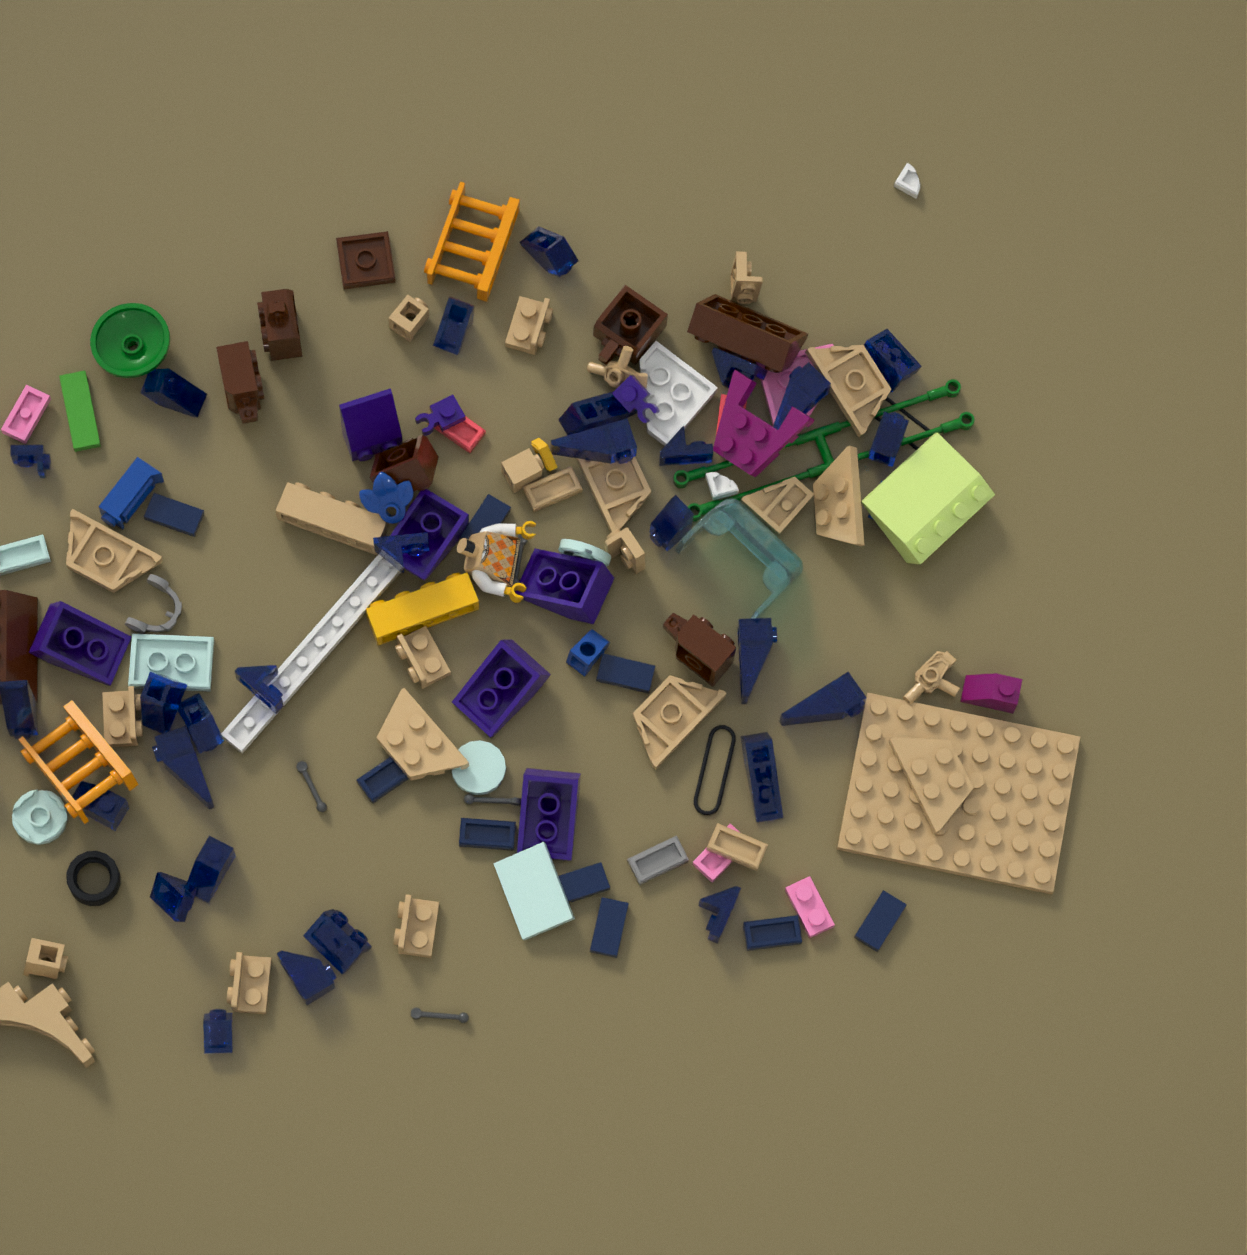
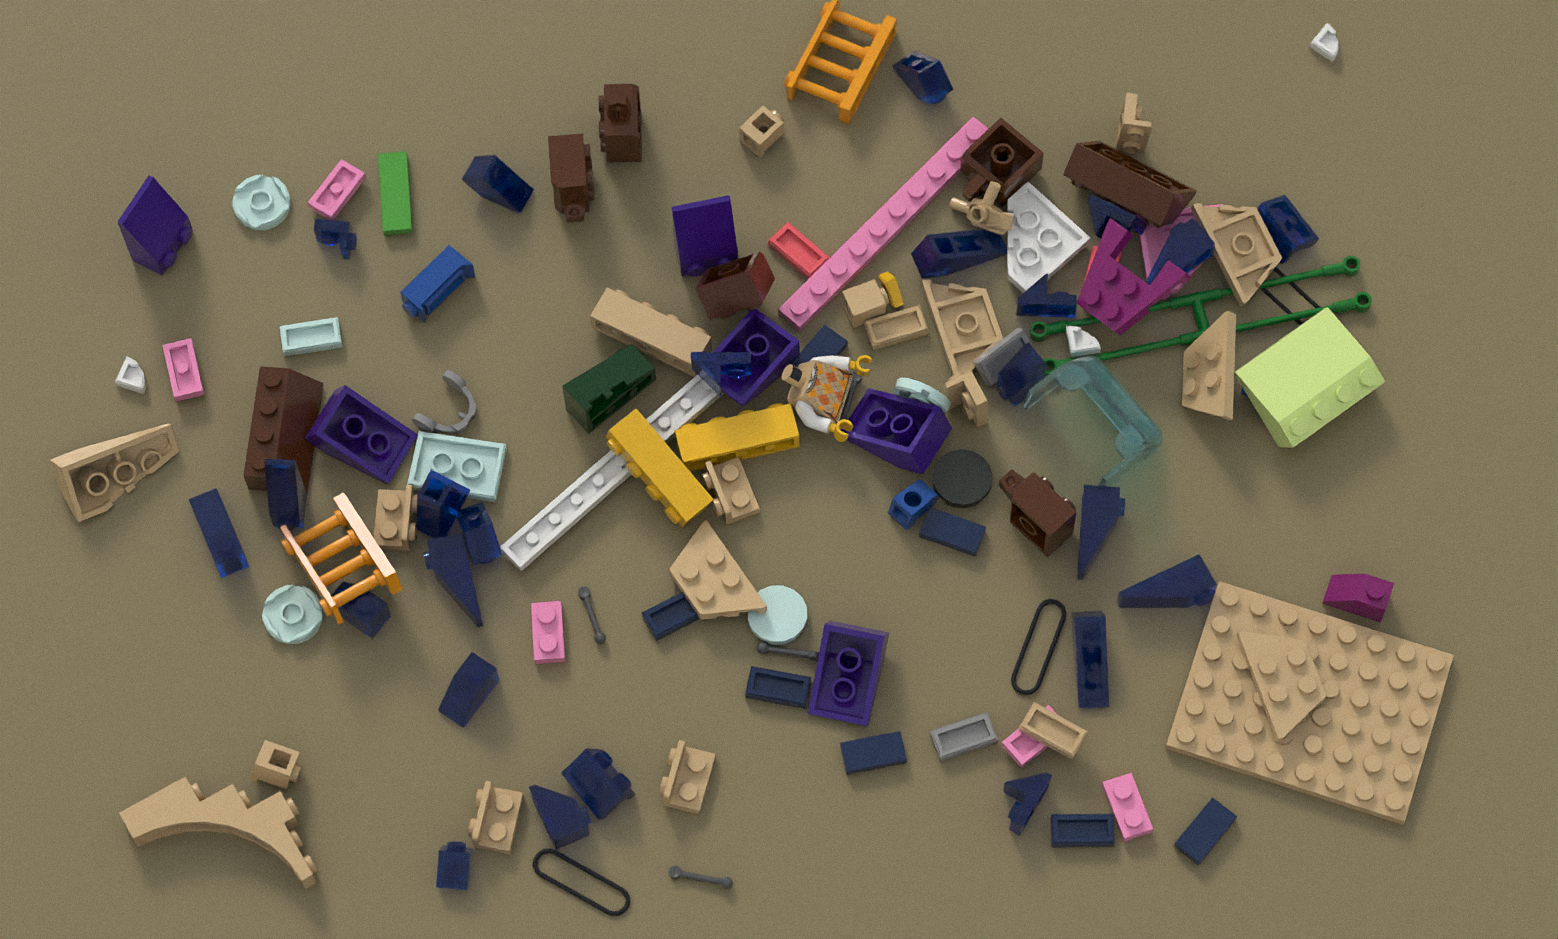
camera: 15 degrees right, 5 degrees down
(93, 857) = (333, 664): black tyre -> none
(105, 554) = (402, 345): tan wing -> none
(129, 326) = (456, 111): green dish -> none
(173, 895) = (425, 713): clear blue slope -> none
(174, 514) = (481, 311): dark blue tile -> none
(256, 681) = (547, 494): clear blue slope -> none
(274, 807) = (548, 632): none -> bright pink plate
(300, 574) = (607, 387): none -> dark green wedge
(329, 1042) = (573, 892): none -> black piece
(355, 645) = (658, 468): none -> yellow brick
(365, 260) = (723, 67): reddish brown tile -> none
(387, 494) = (712, 309): blue plate -> none
(443, 413) = (786, 234): dark purple plate -> none
(454, 325) = (809, 143): clear blue slope -> none
(500, 687) = (812, 530): dark purple slope -> none
(527, 325) = (890, 152): tan bracket -> none
(529, 396) = (880, 229): none -> bright pink plate
(534, 891) = (821, 754): light aqua tile -> none
(603, 444) = (955, 282): clear blue slope -> none
(609, 927) = (900, 803): dark blue tile -> none
(628, 623) = (962, 478): none -> pearl dark grey tile
(633, 396) = (995, 237): dark purple plate -> none
(651, 506) = (999, 355): none -> light grey tile
(672, 715) = (999, 581): tan wing -> none
(778, 503) = (1143, 367): tan wing -> none
(888, 438) = (1272, 308): clear blue slope -> none
(931, 677) = (1292, 571): tan piece -> none

